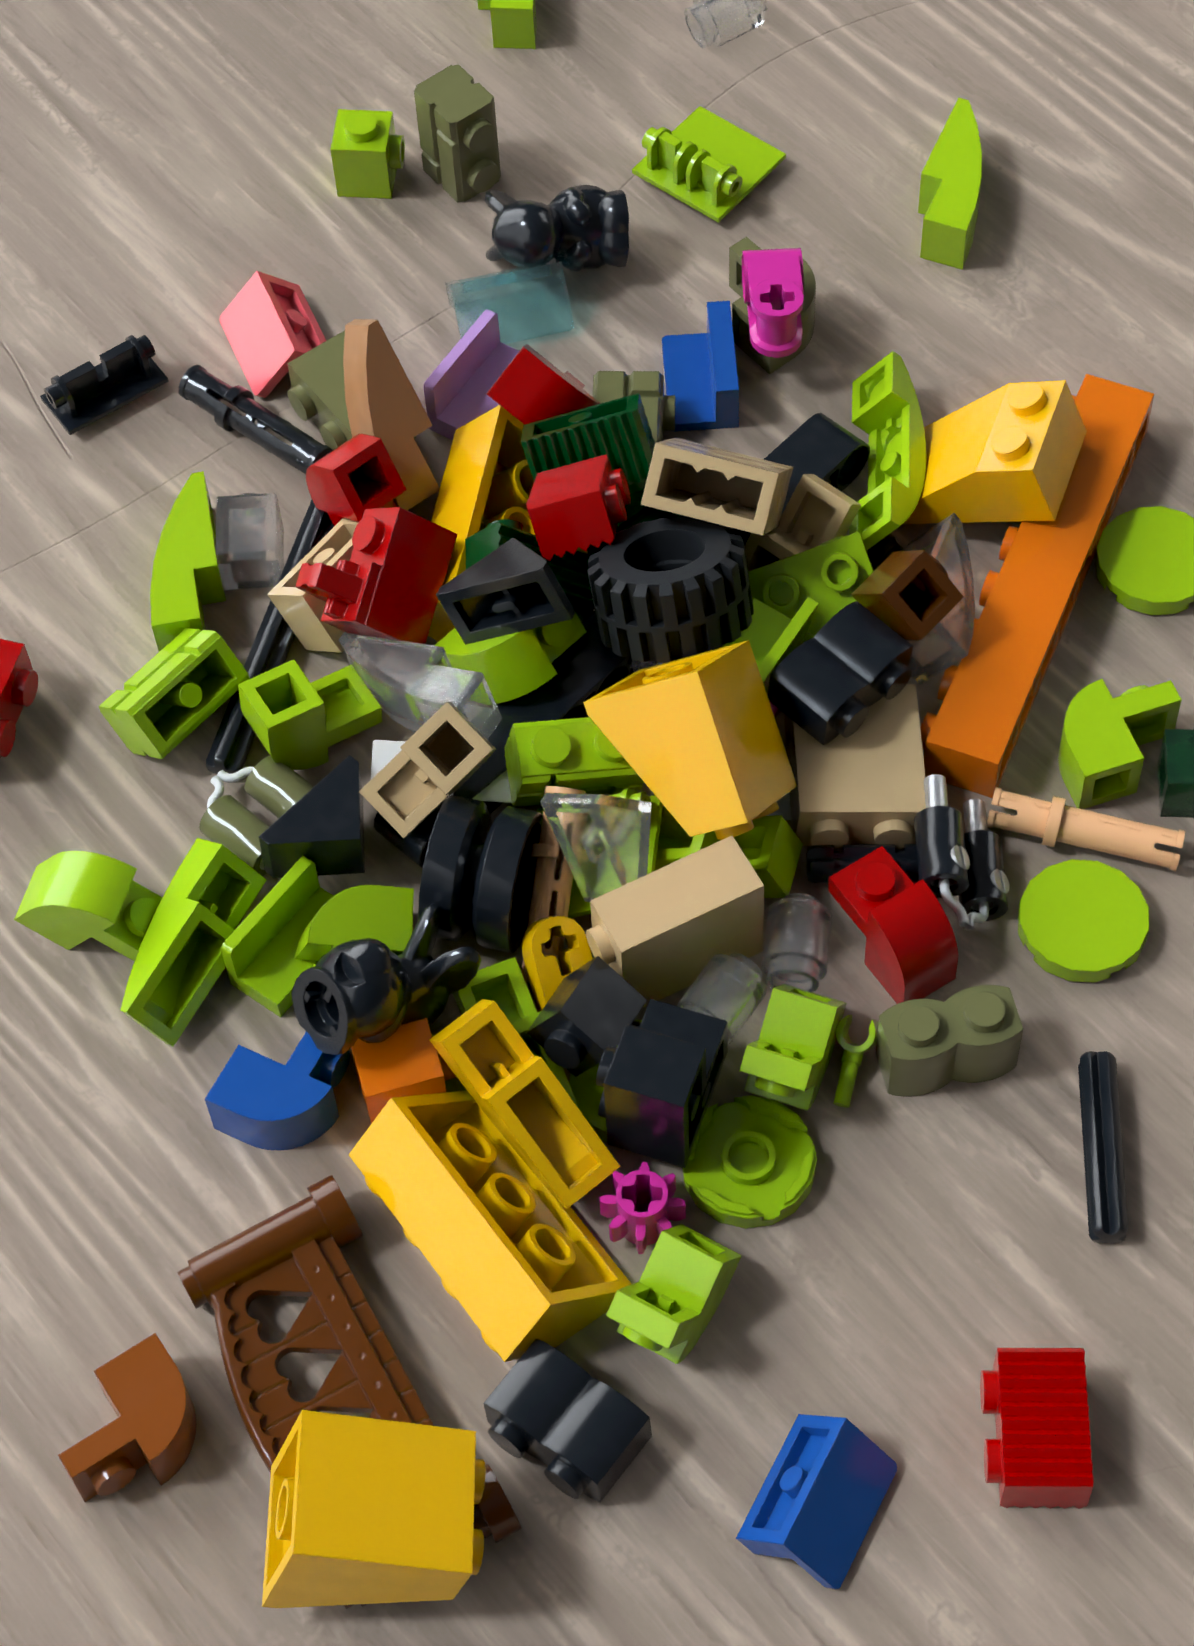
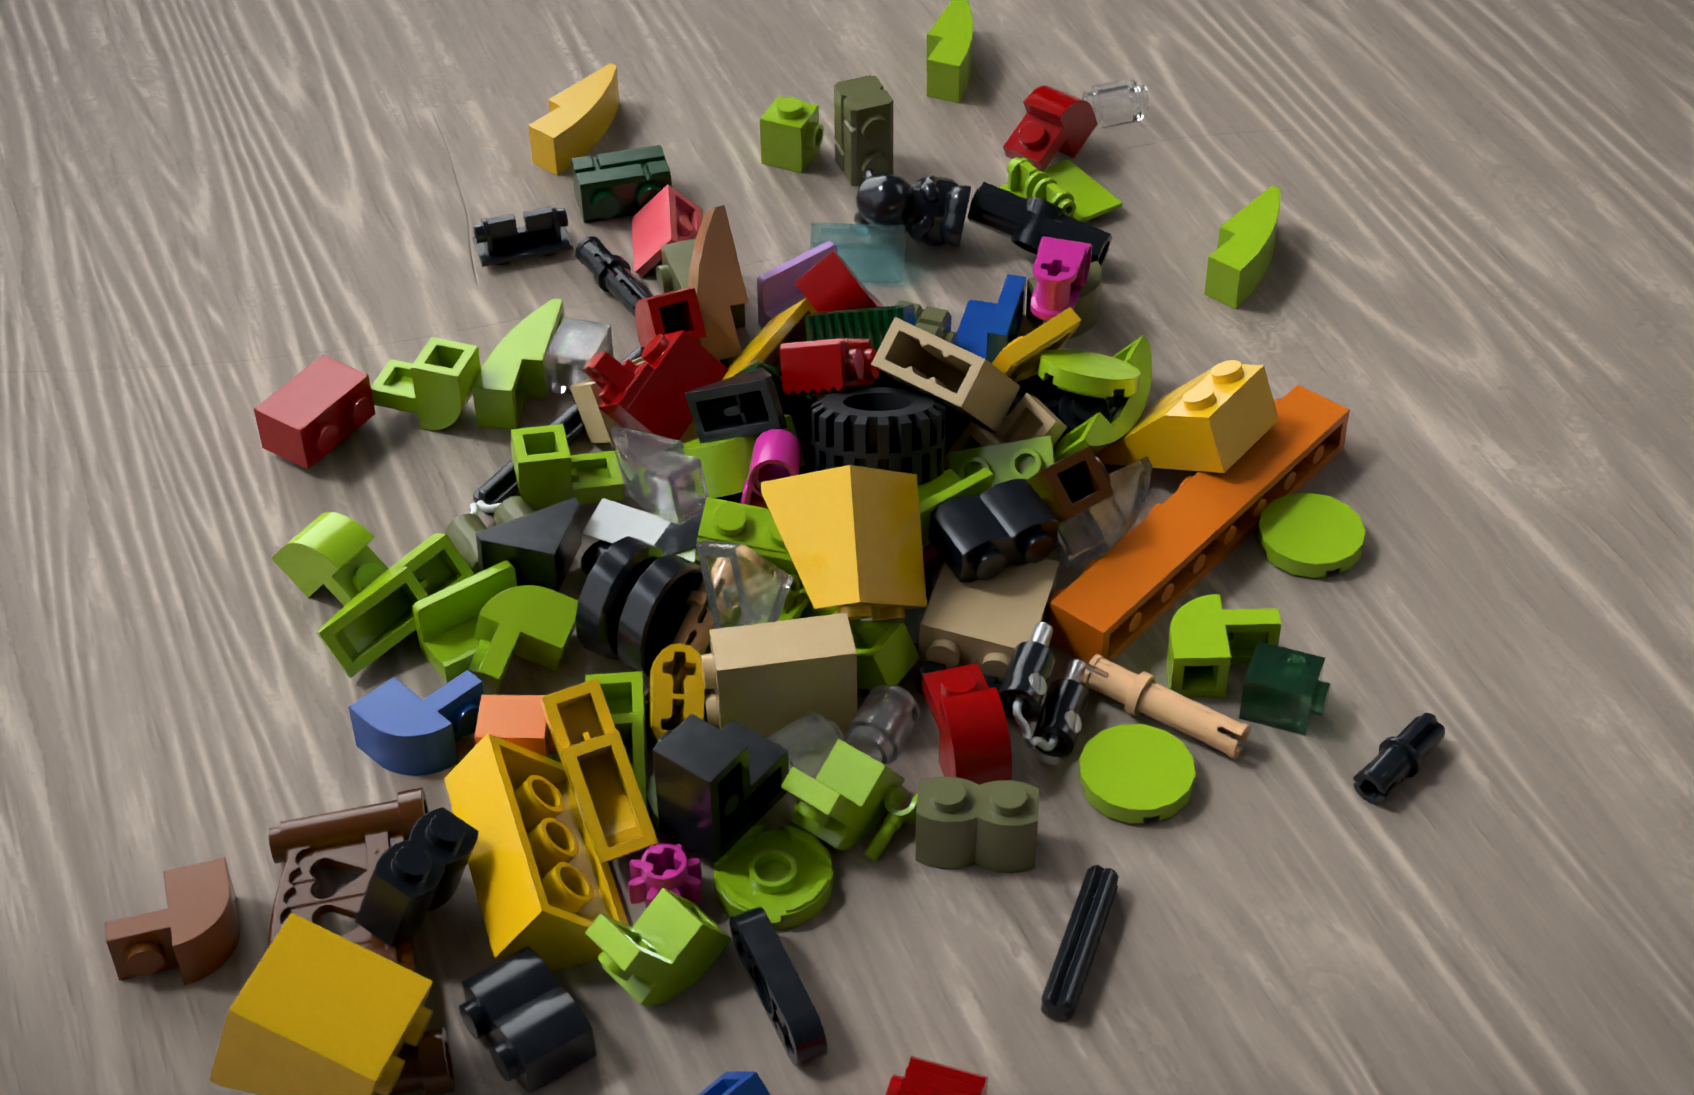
camera: 15 degrees right, 15 degrees down
(94, 196) = (575, 120): none -> yellow slope
(100, 635) = (432, 386): none -> lime brick
(174, 692) = (466, 438): lime brick -> none
(190, 275) = (618, 181): none -> dark green brick
(371, 991) = (506, 653): black animal -> none
(385, 1295) = (416, 876): none -> black brick
(427, 769) = (638, 507): tan brick -> none
(569, 671) = (771, 447): none -> dark pink piece
(586, 1016) = (669, 709): black brick -> none
(670, 69) = (1052, 124): none -> red brick
(708, 217) = (1032, 219): none -> black piece
(775, 411) = (1022, 355): none -> yellow plate
(814, 1298) = (778, 986): none -> black beam
(858, 424) = (1088, 372): none -> lime tile
(861, 469) = (1076, 409): none -> black plate

